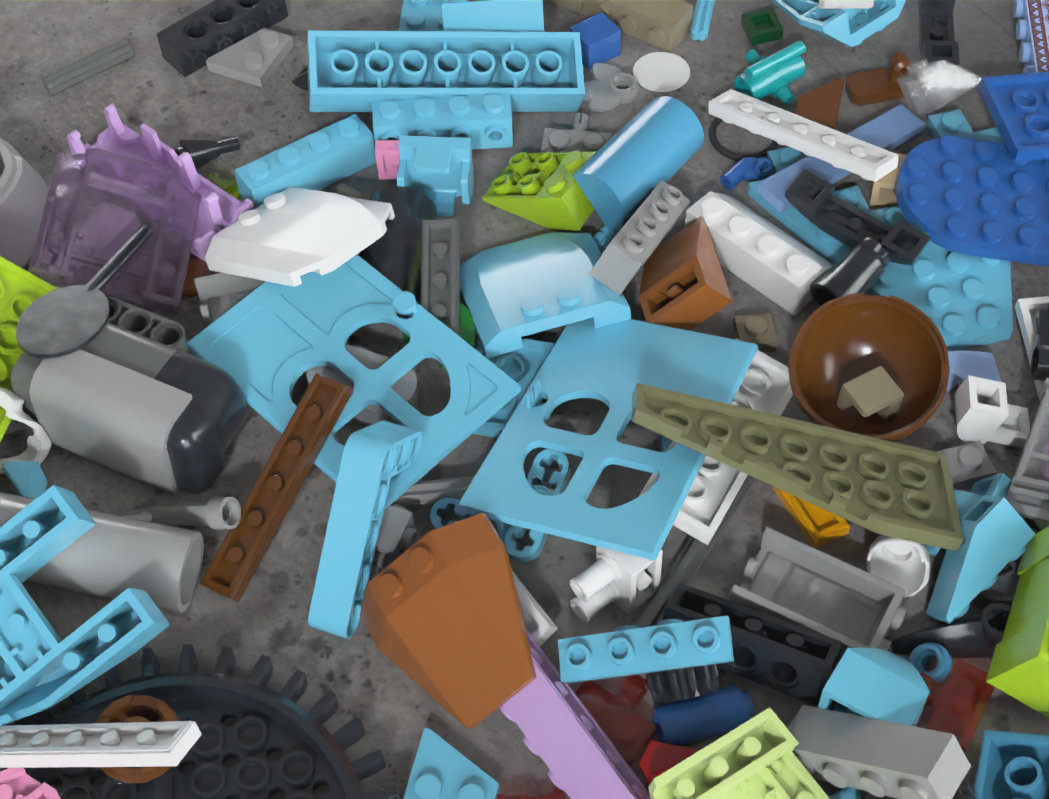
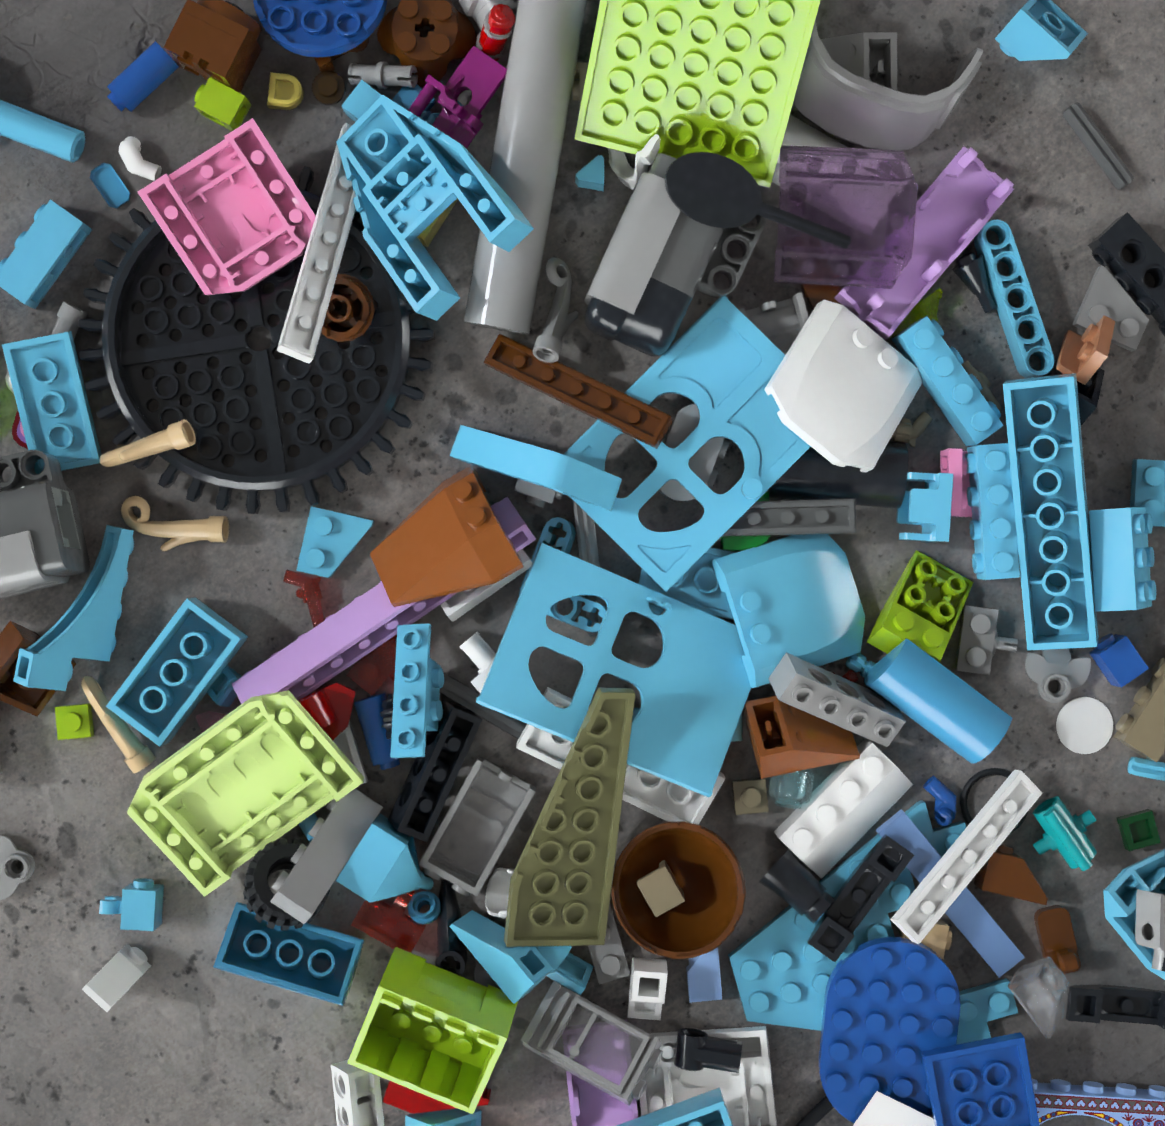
camera: 90 degrees right, 35 degrees up
(237, 116) = (1009, 316): none -> medium azure beam
(285, 55) = (1086, 352): none -> nougat bracket
(746, 290) = (792, 789): none -> clear light blue head

